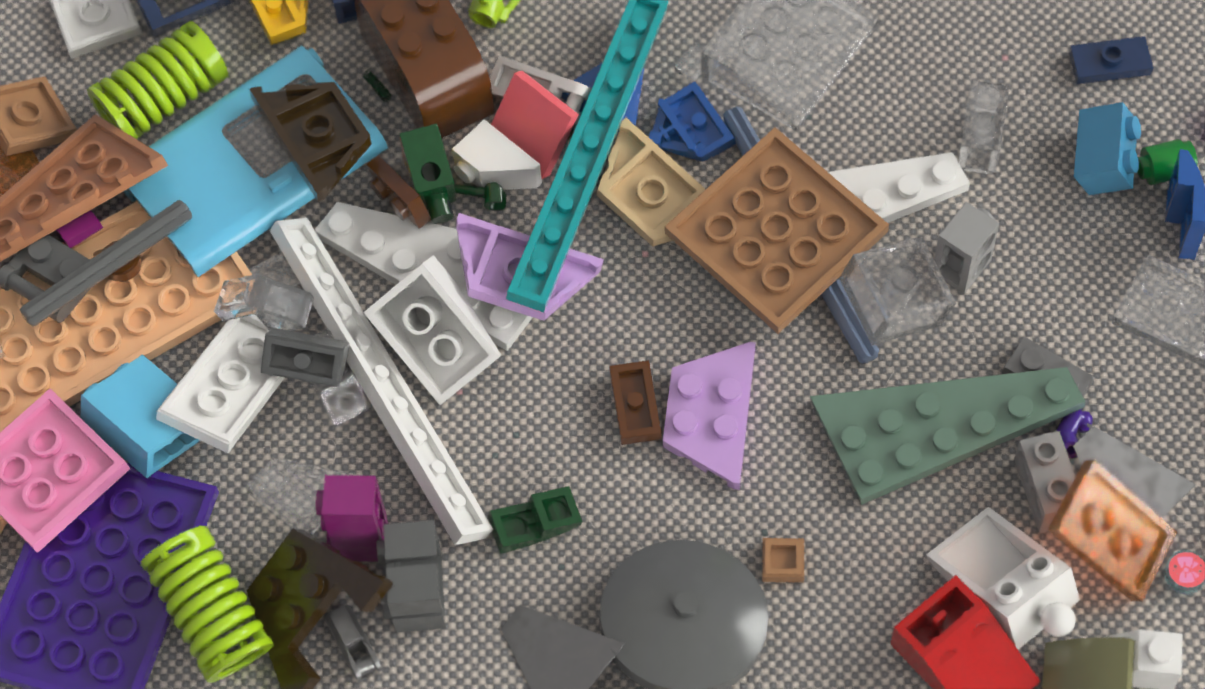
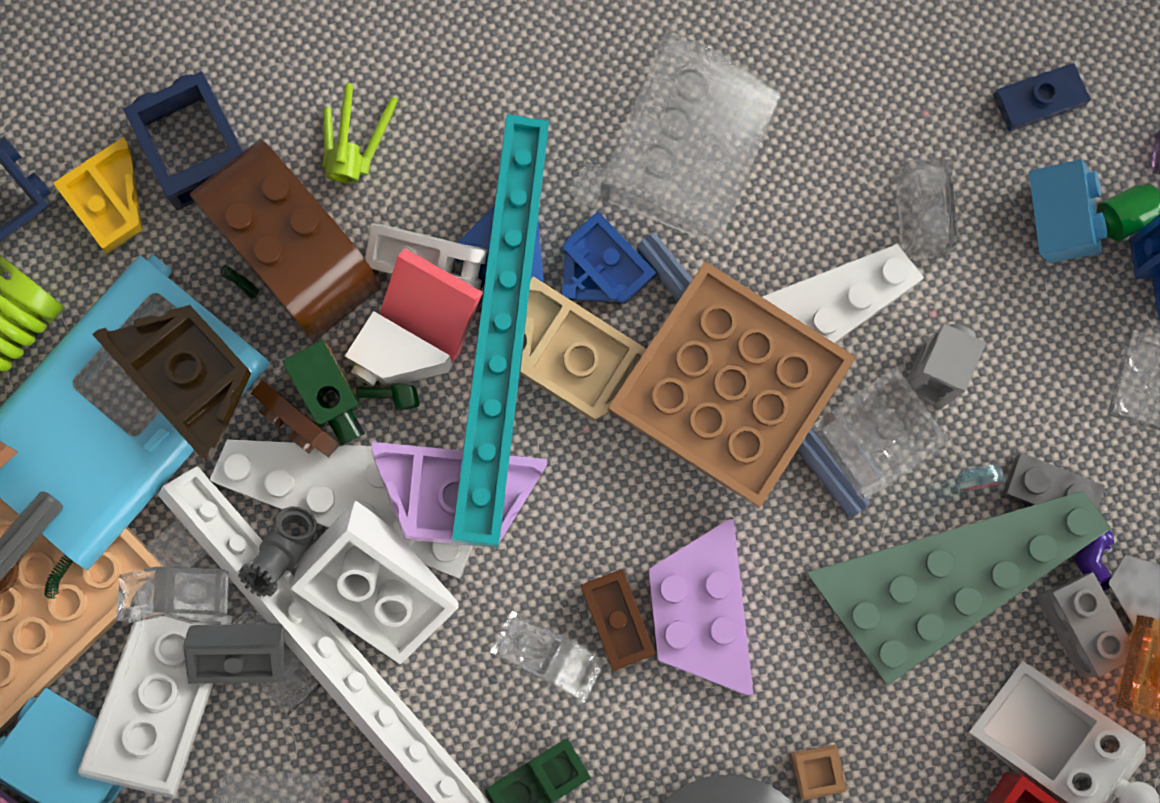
camera: 20 degrees left, 15 degrees up
(167, 281) = (57, 577): none -> dark green leg
(360, 288) = (278, 552): none -> dark grey connector
(564, 411) = (548, 656): none -> clear slope
(982, 349) = (980, 477): none -> clear light blue tile

